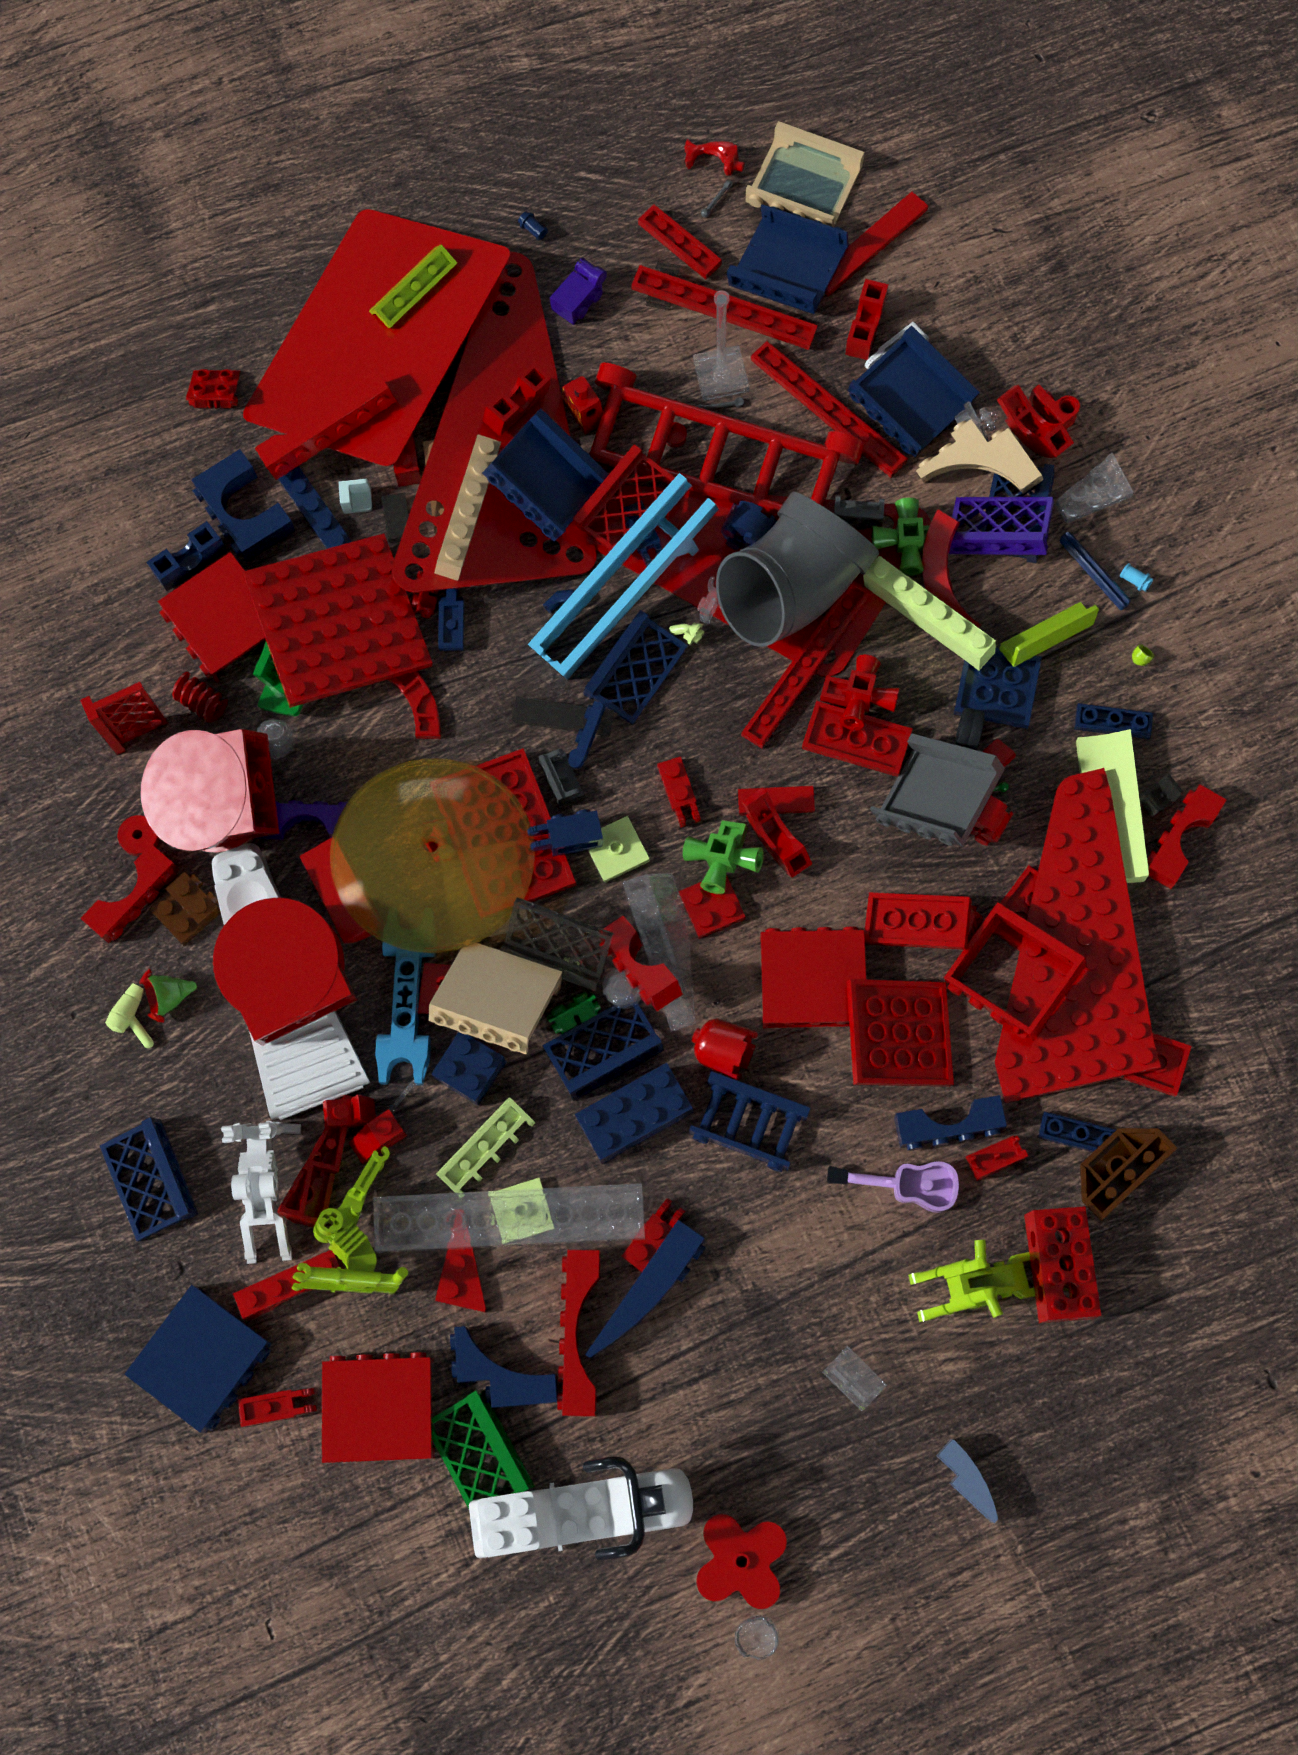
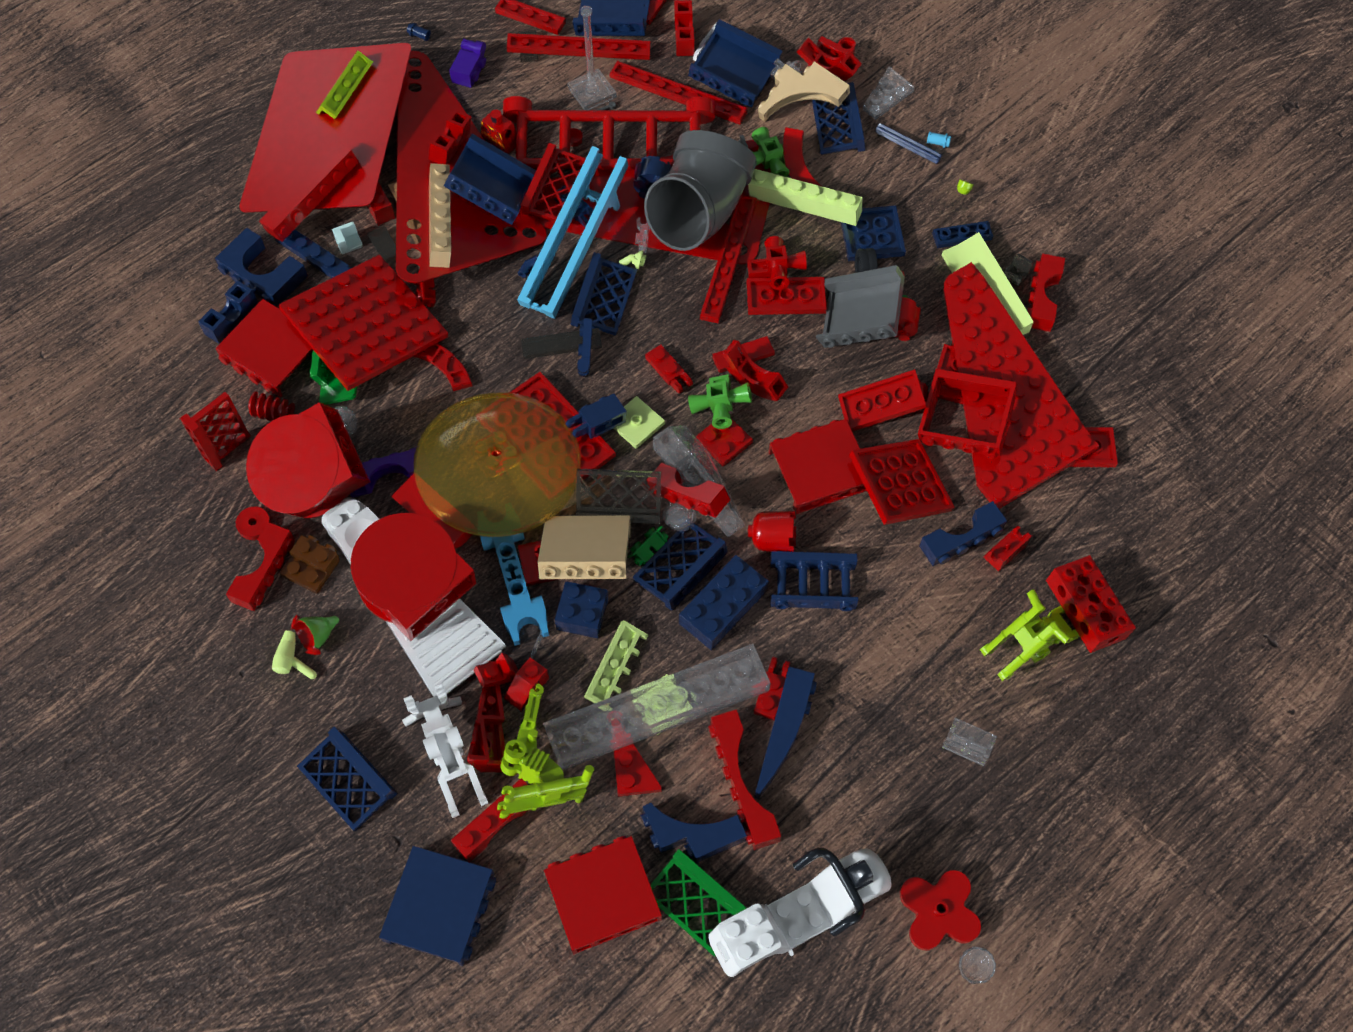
camera: 25 degrees left, 10 degrees down
(215, 386) = (215, 192): red hinge -> none
(273, 1407) = (514, 923): red hinge -> none
(451, 622) = (452, 301): dark blue hinge -> none
(561, 777) = (575, 385): dark grey hinge -> none
(929, 1185) = (966, 584): lavender piece -> none
(968, 1479) = (1087, 787): sand blue slope -> none
(998, 541) = (834, 137): dark purple fence -> none
(1048, 633) = (894, 188): lime panel -> none
(1063, 1131) = (1070, 514): dark blue tile -> none
(1121, 1167) = (1102, 521): reddish brown wedge -> none

